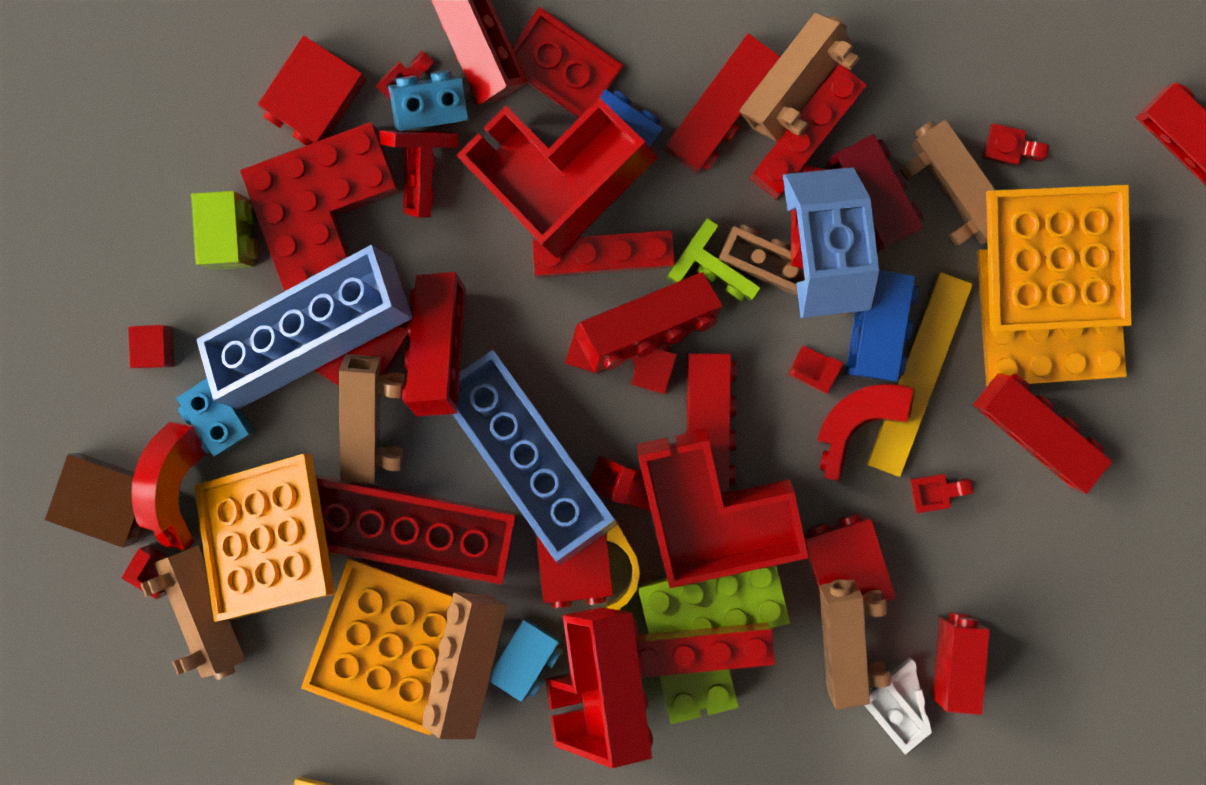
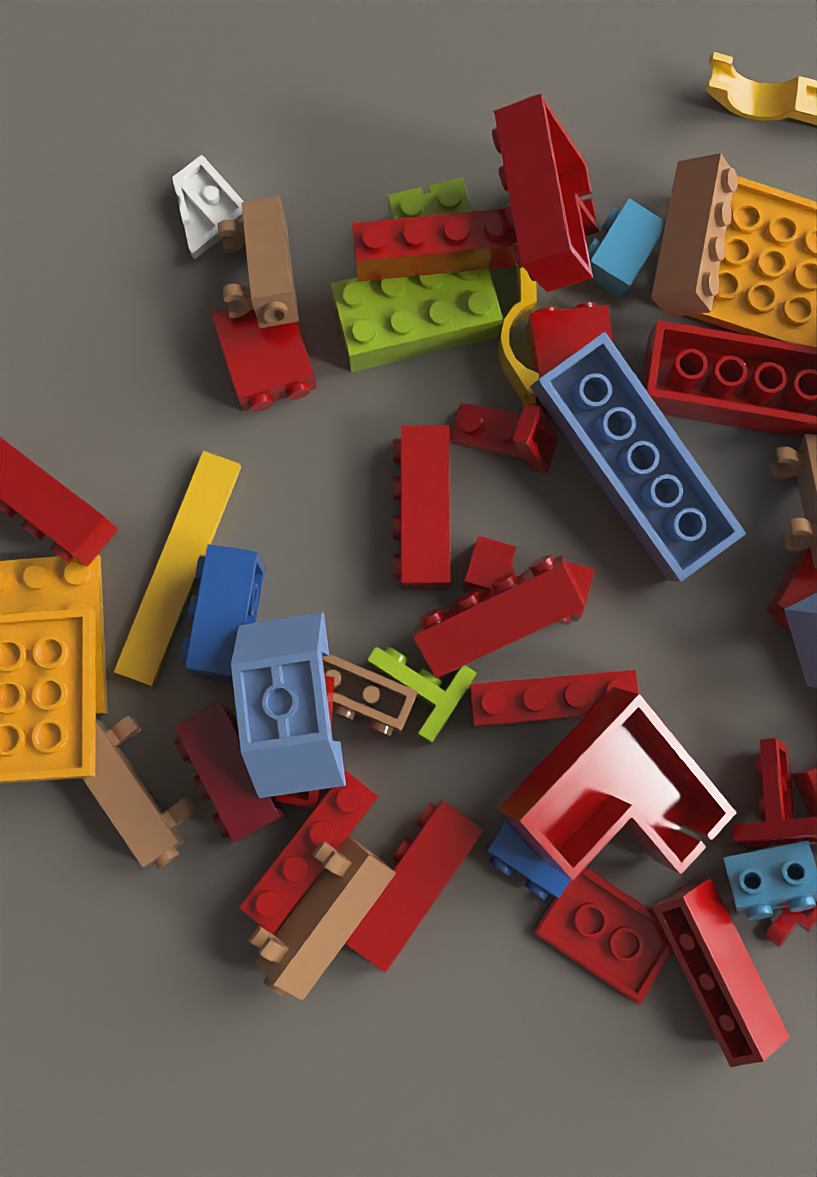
camera: 170 degrees right, 10 degrees down
(434, 344) = (749, 586): red brick -> none
(711, 532) = (424, 377): red piece -> none
(814, 369) = (301, 569): red panel -> none
(861, 407) = (253, 521): red arch -> none
(934, 492) = (164, 432): red plate -> none
(960, 664) = (138, 242): red brick -> none
(1008, 145) = (66, 840): red plate -> none

